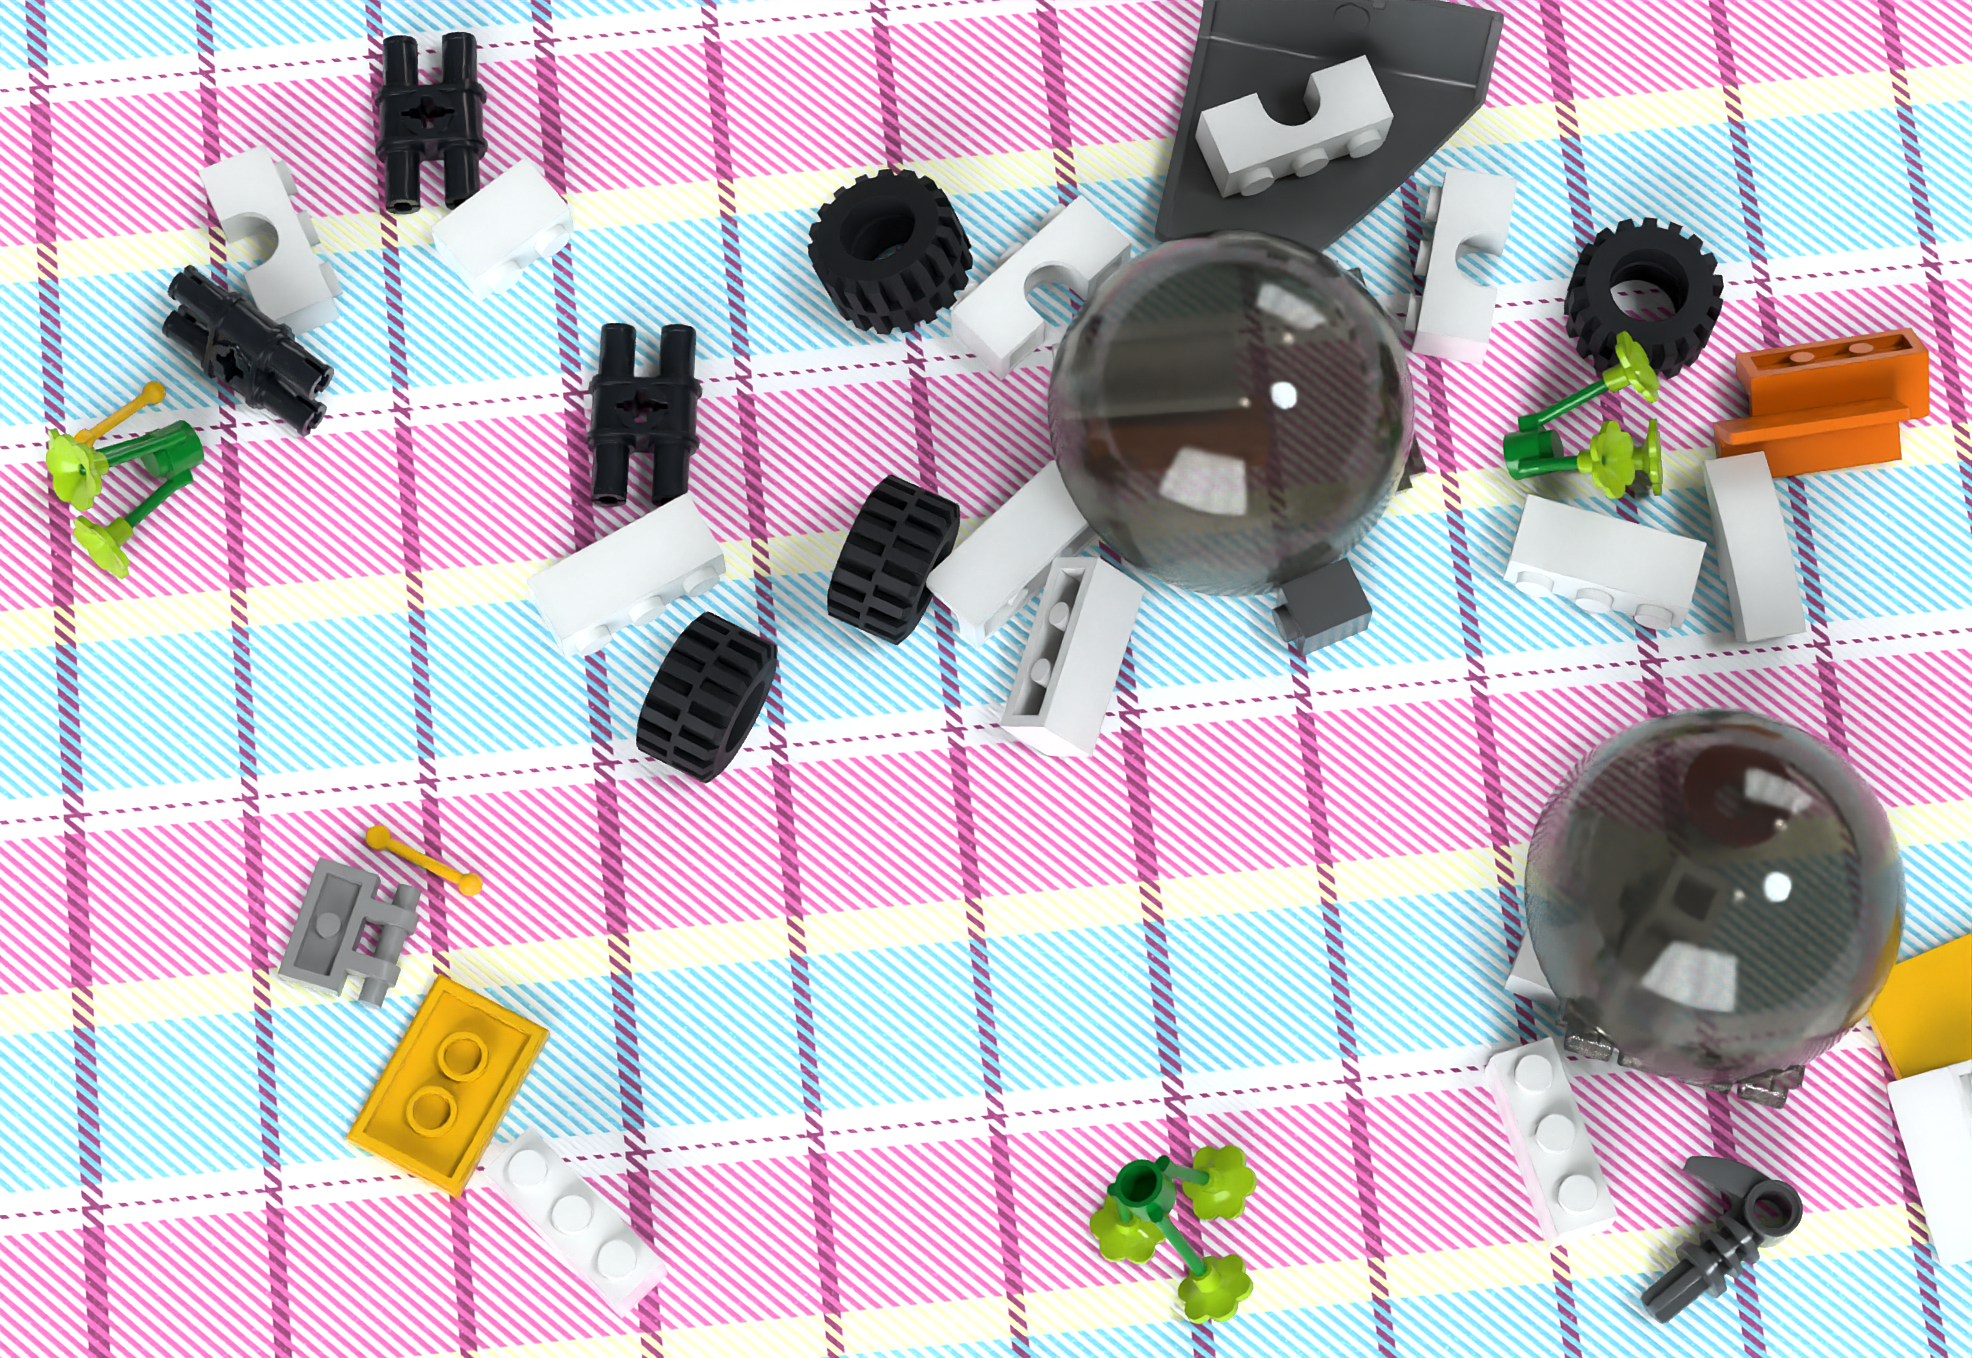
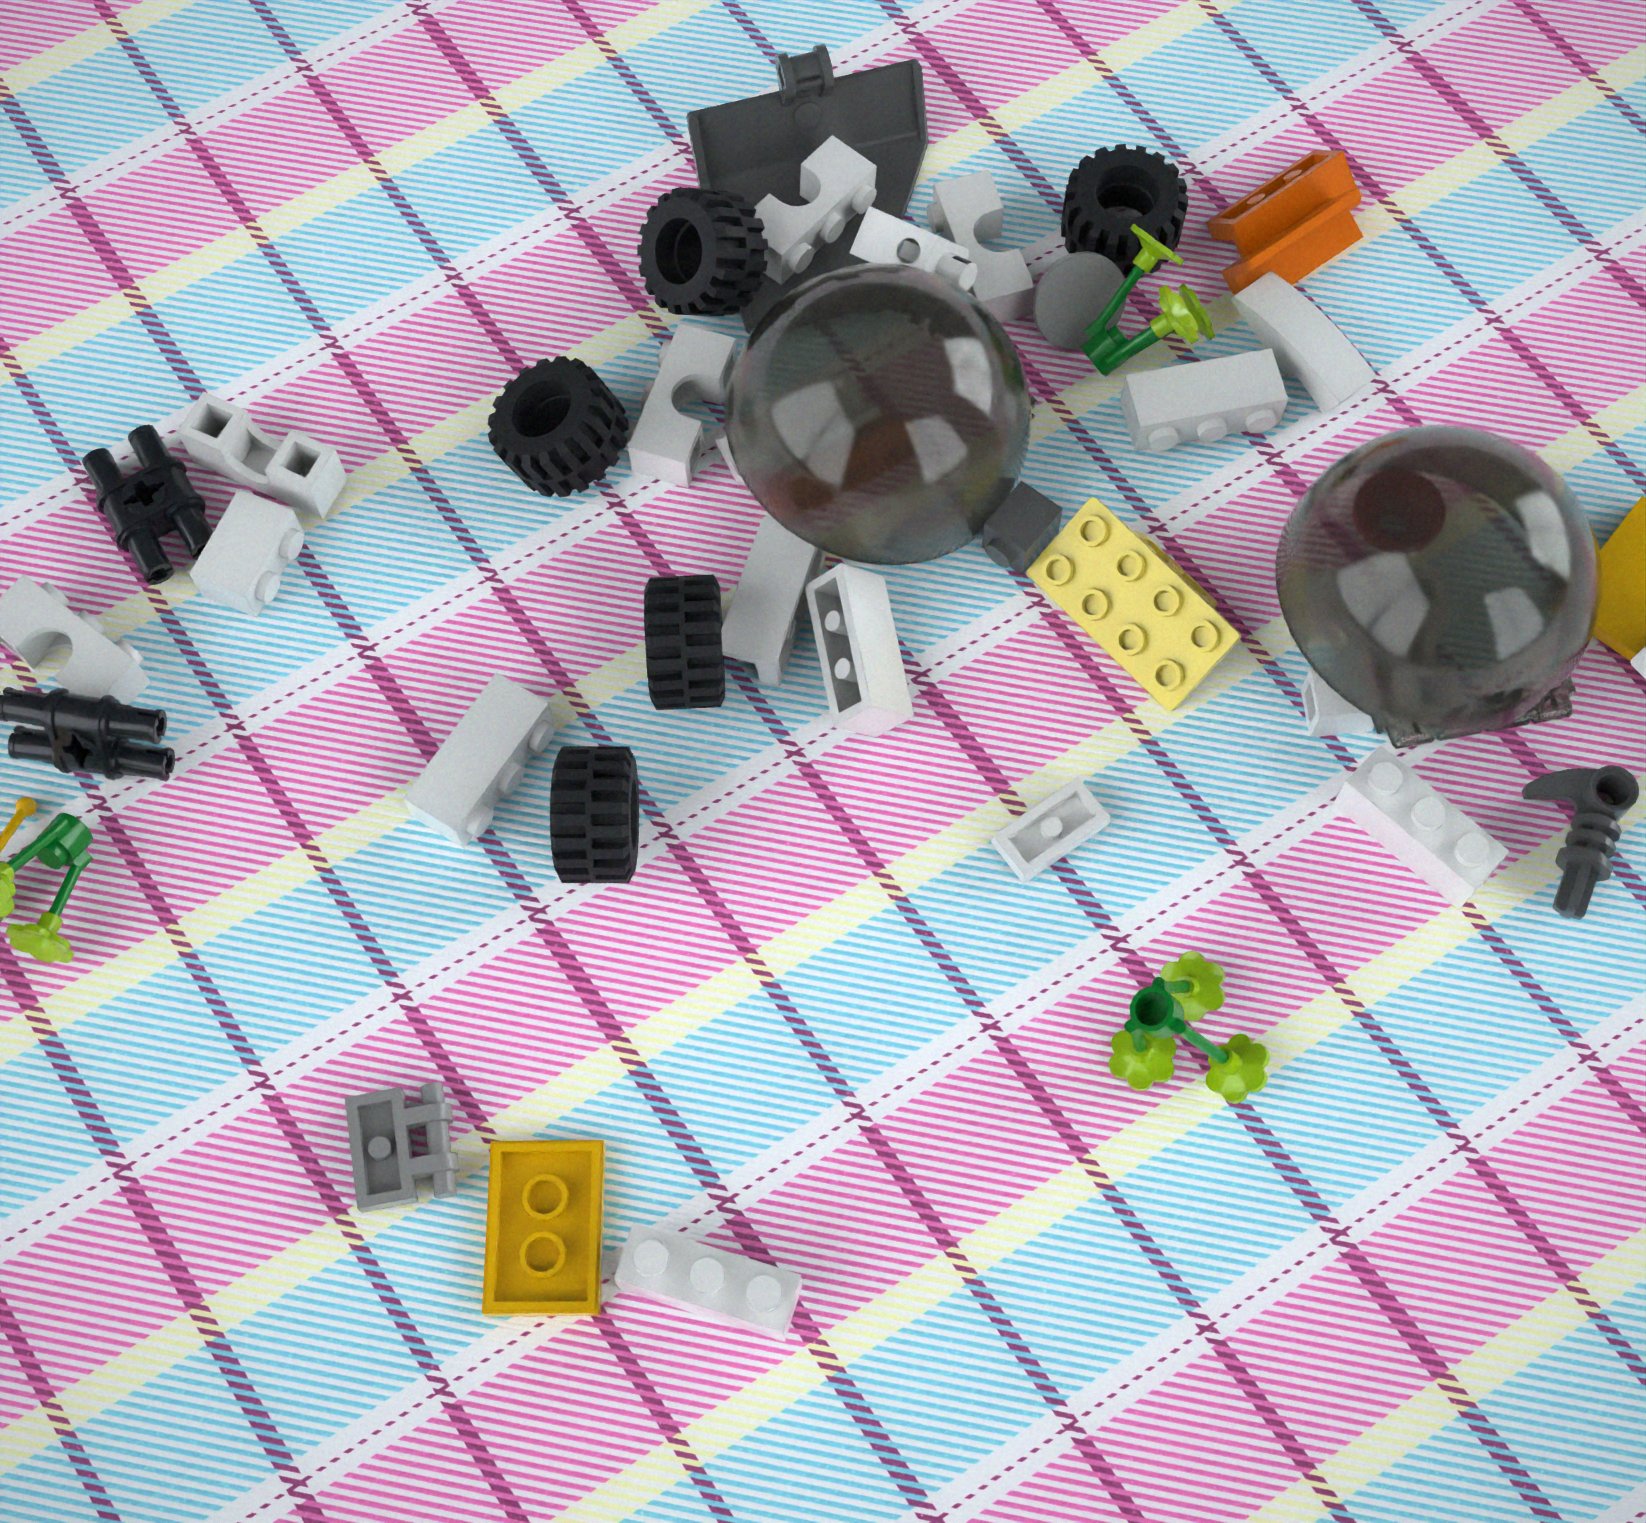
camera: 25 degrees left, 5 degrees down
(380, 839) = (386, 1060): yellow hinge -> none
(583, 151) = (292, 470): none -> white arch
(619, 400) = (405, 631): black pin -> none
(1145, 128) = (702, 252): none -> black tyre
(1168, 947) = (1050, 830): none -> white plate
(1388, 256) = (883, 234): none -> white torso
(1398, 749) = (1134, 603): none -> light yellow bracket
(1527, 374) = (1074, 296): none -> light grey shield

